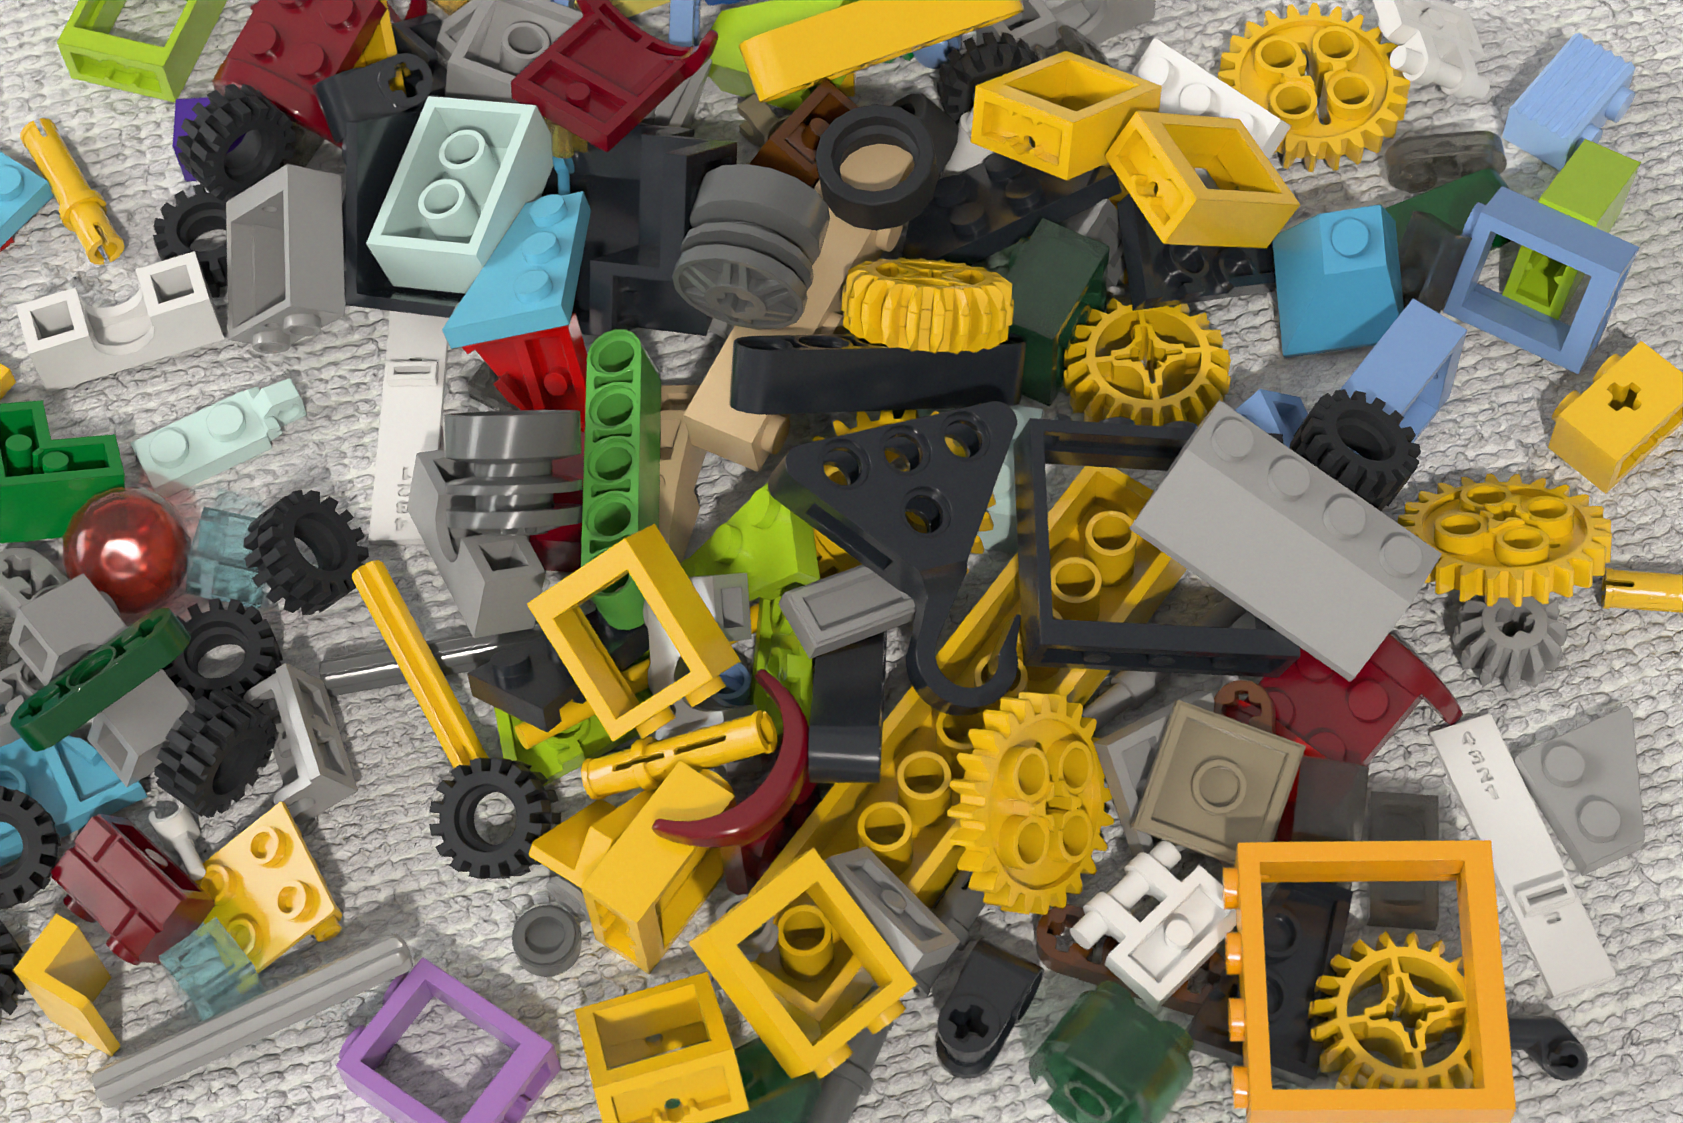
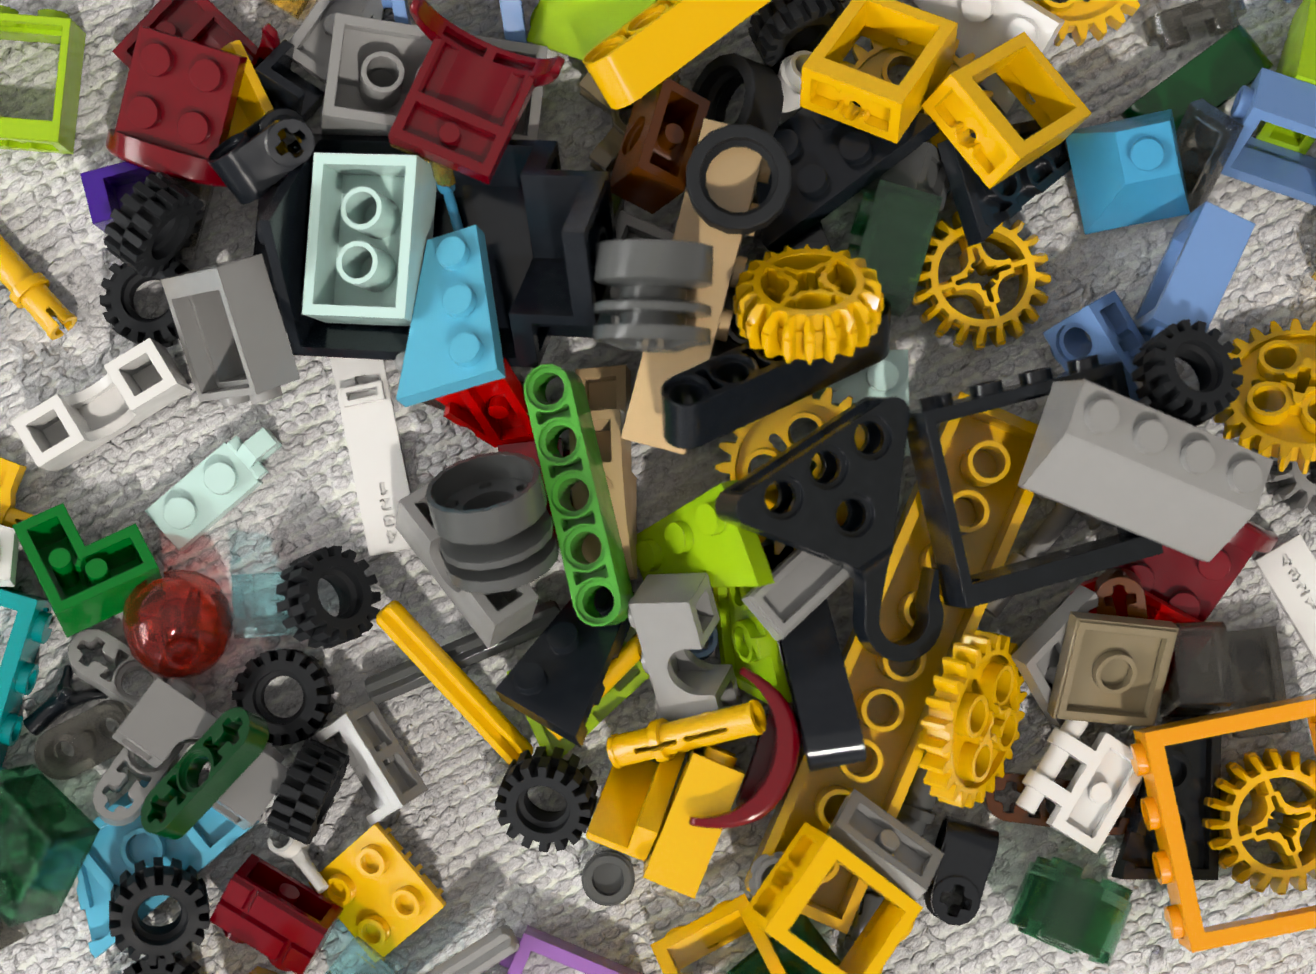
camera: 15 degrees left, 25 degrees up
(676, 606) = (641, 617): yellow window -> none

